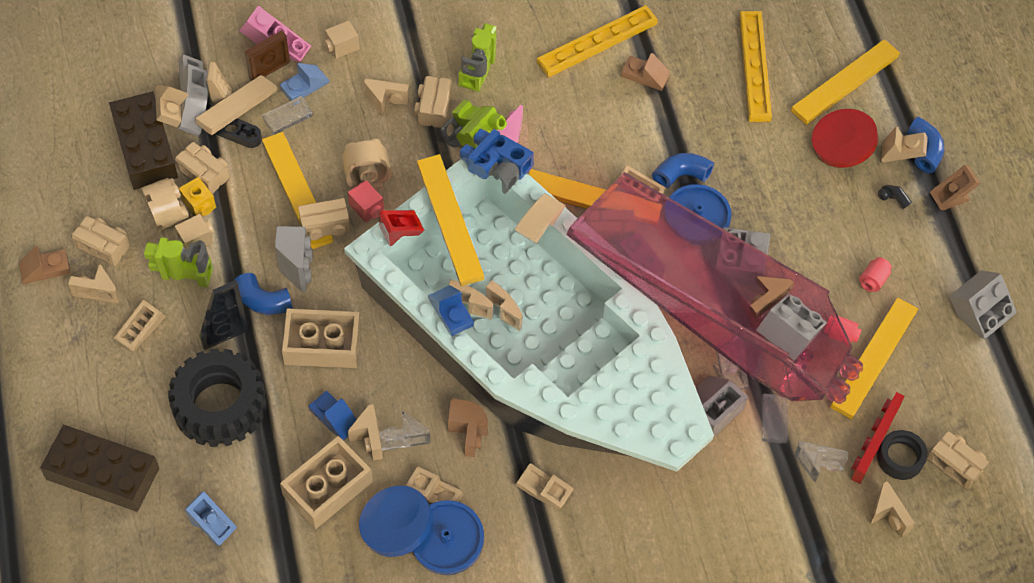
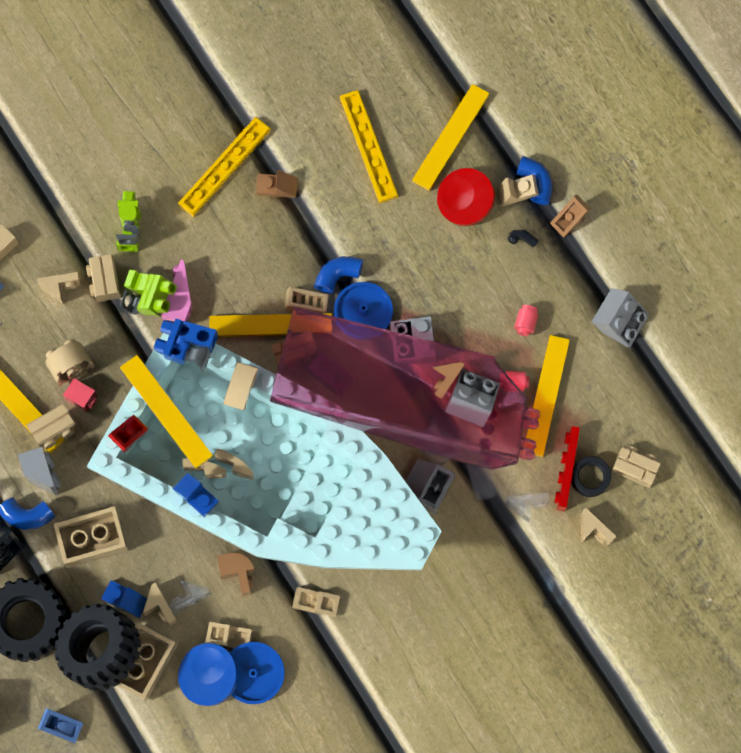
camera: 20 degrees left, 15 degrees up
(294, 461) = (77, 637): none -> black tyre

